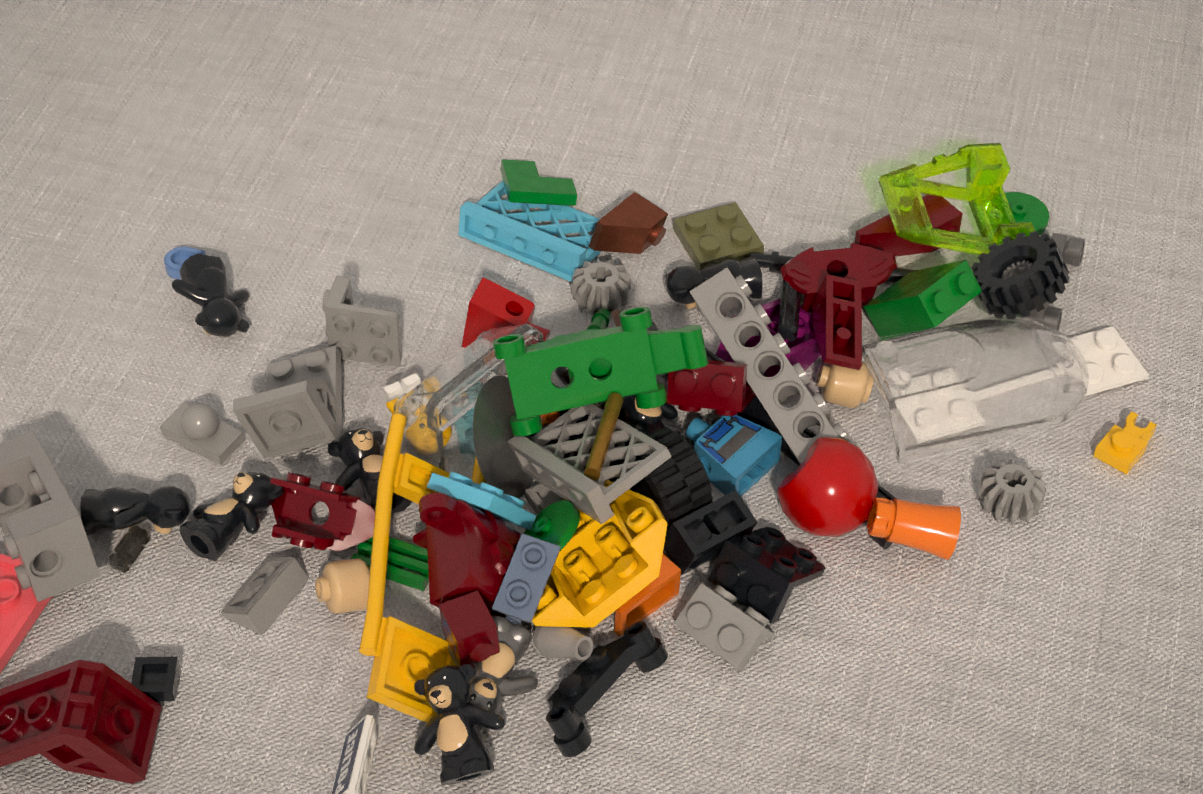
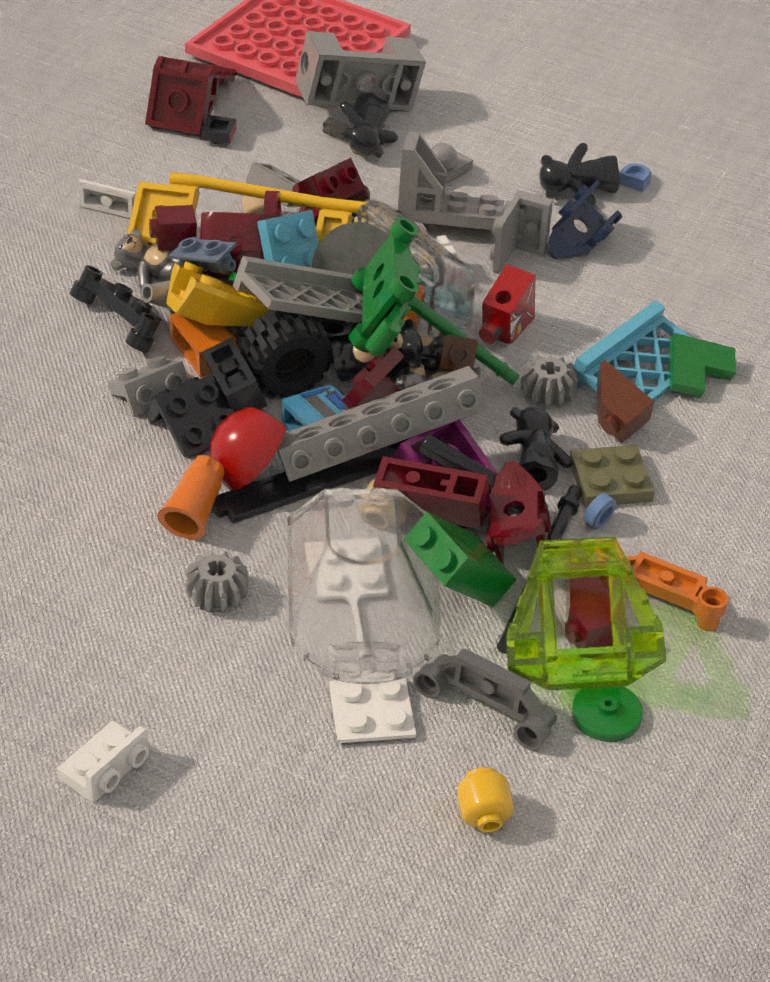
camera: 100 degrees right, 5 degrees down
(223, 521) = (331, 152): black piece -> none
(304, 275) = (567, 239): none -> dark blue piece
(454, 725) = (100, 229): black piece -> none
(603, 436) = (315, 291): pearl gold bar -> none
(781, 233) = (600, 510): none -> medium blue tile
(855, 181) = (680, 588): none -> orange plate
(1020, 275) = (461, 623): black bush -> none
(1125, 445) = (253, 688): yellow plate -> none
(1169, 265) = (485, 799): none -> yellow head

